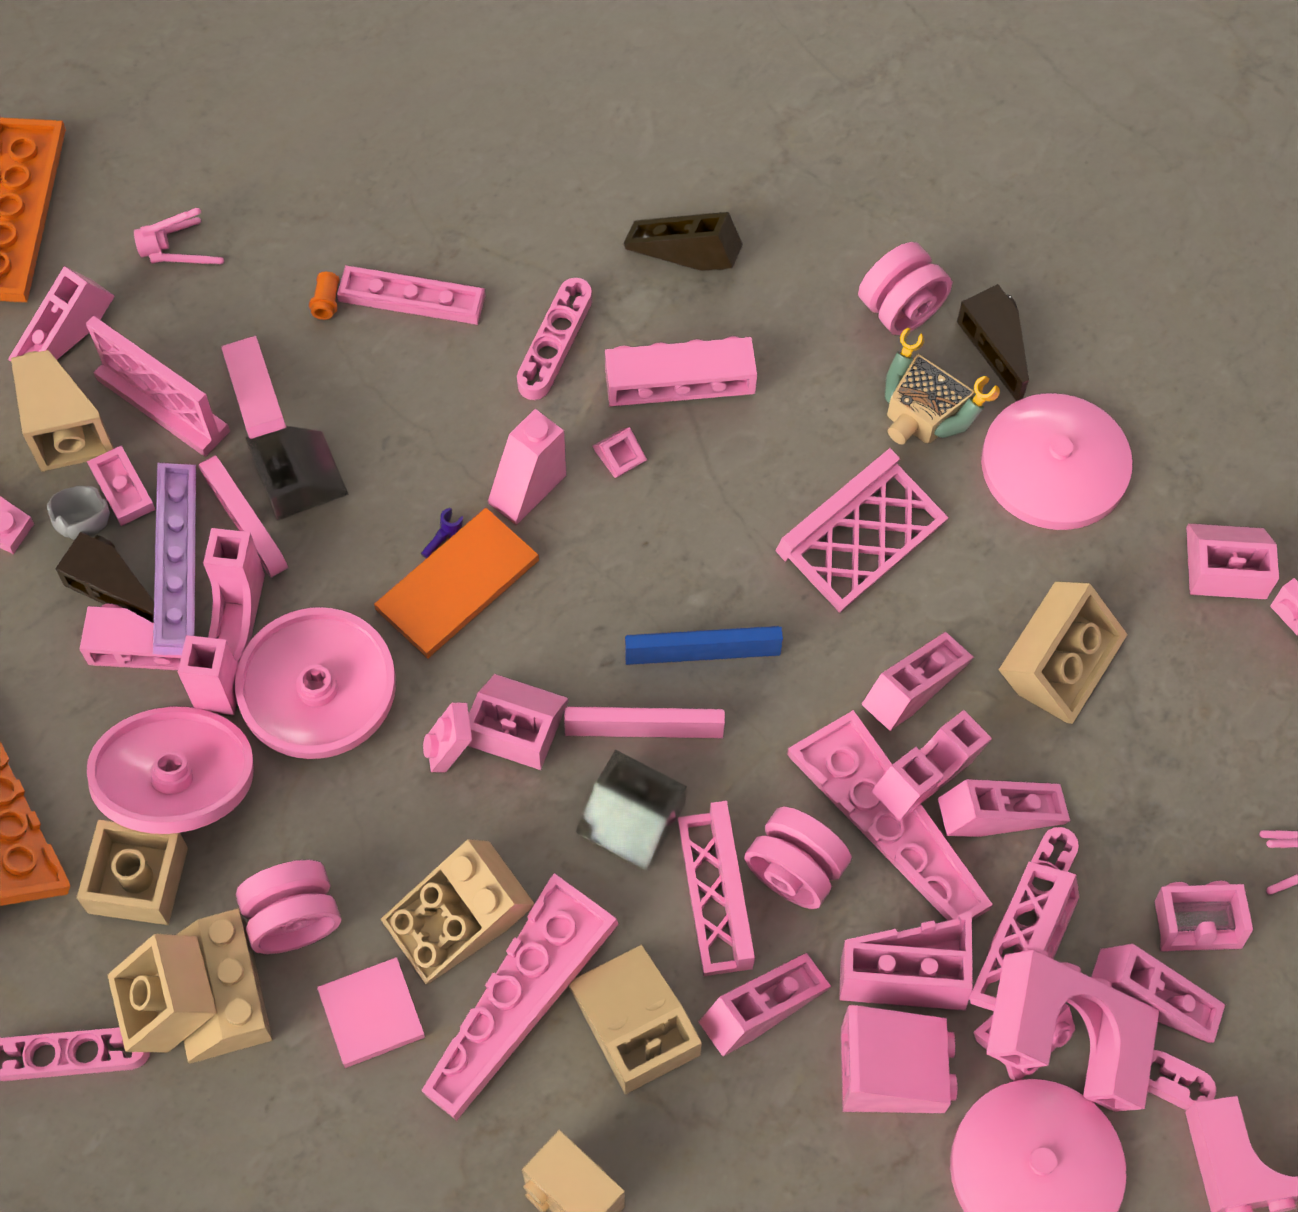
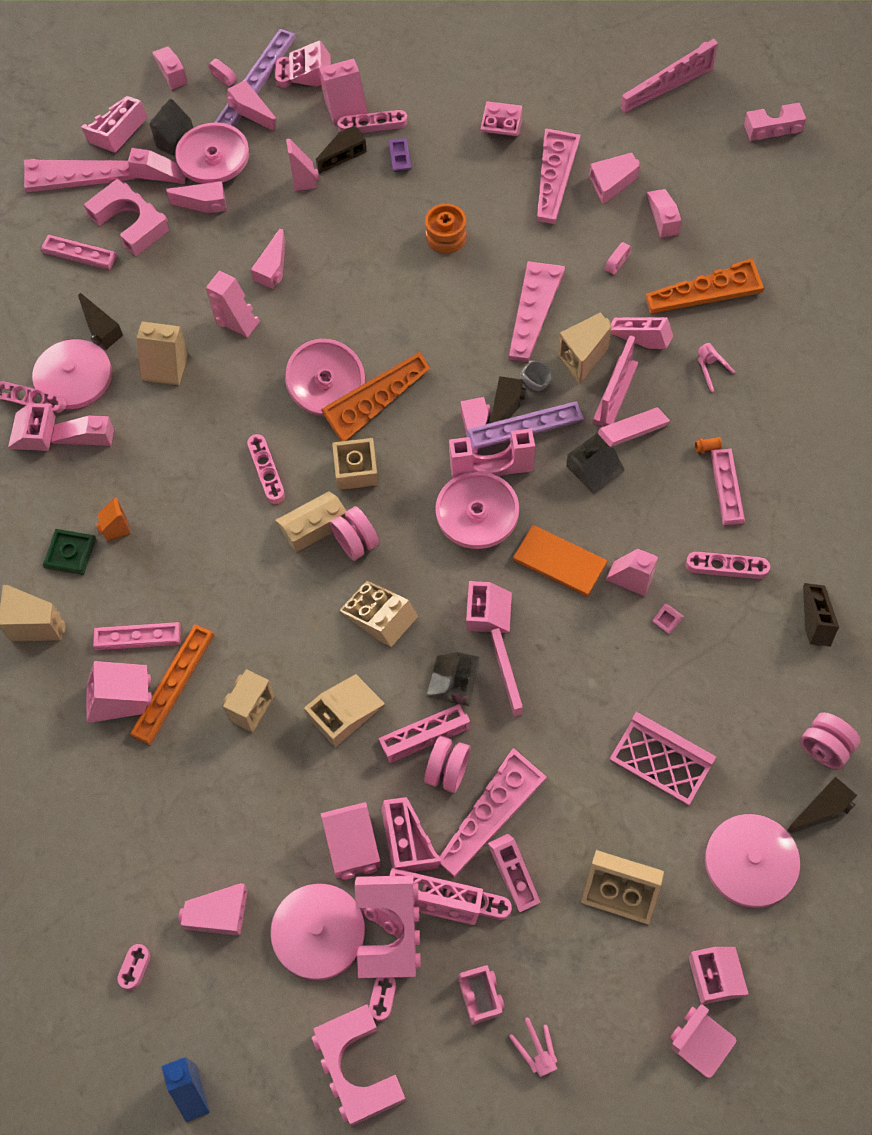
camera: 80 degrees right, 0 degrees up
(121, 485) = (559, 390): bright pink plate -> none
(161, 993) = (298, 494): tan brick -> none
(170, 770) = (410, 461): bright pink dish -> none
(242, 514) = (561, 449): bright pink beam -> none
(370, 1012) = (318, 590): bright pink tile -> none
(446, 531) = (587, 546): dark purple hand -> none
(448, 737) = (464, 576): bright pink plate -> none
(539, 965) = (359, 658): bright pink wing -> none
(680, 371) = (727, 633): bright pink brick -> none
(703, 645) = (561, 690): blue tile -> none
(762, 1003) = (368, 770): bright pink slope -> none
(915, 680) = (577, 807): bright pink slope -> none
(928, 399) = (763, 773): torso -> none
(930, 768) = (530, 829): bright pink arch -> none
(1179, 1001) = (427, 978): bright pink slope -> none

